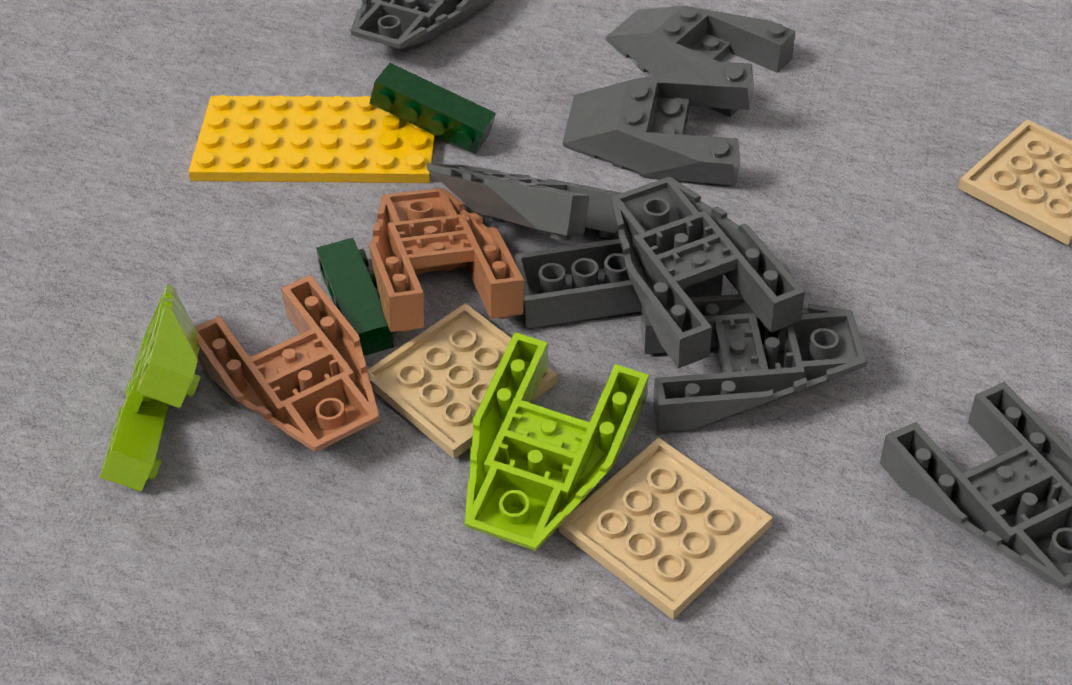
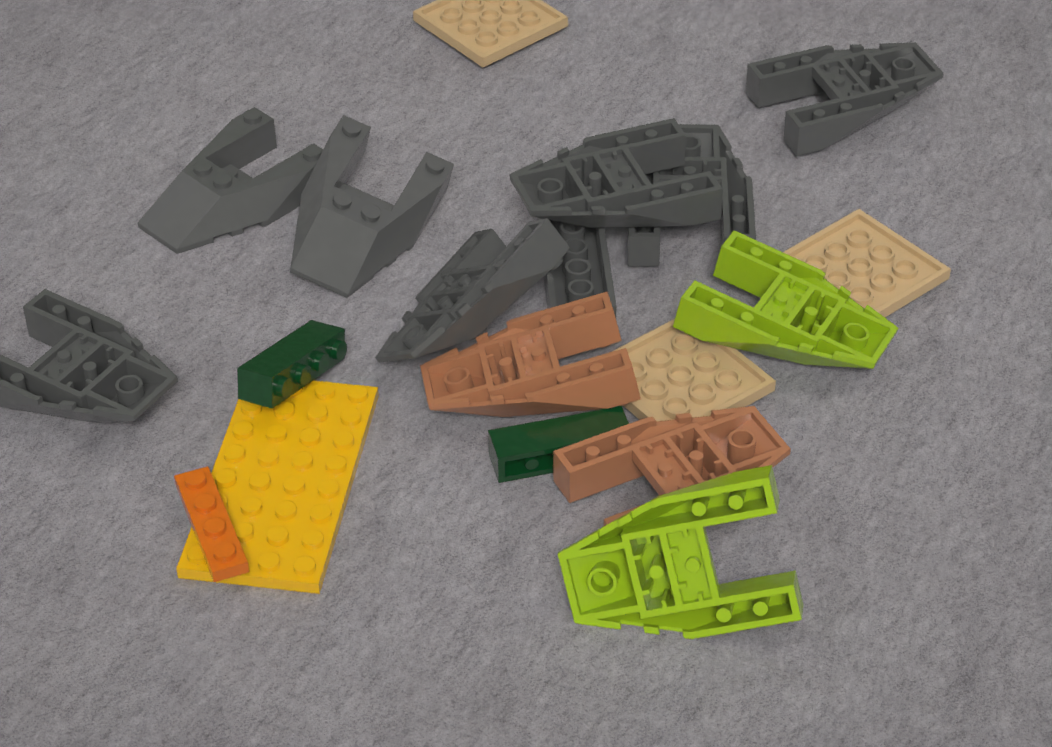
camera: 85 degrees left, 5 degrees down
(245, 98) = (211, 524): none -> orange plate

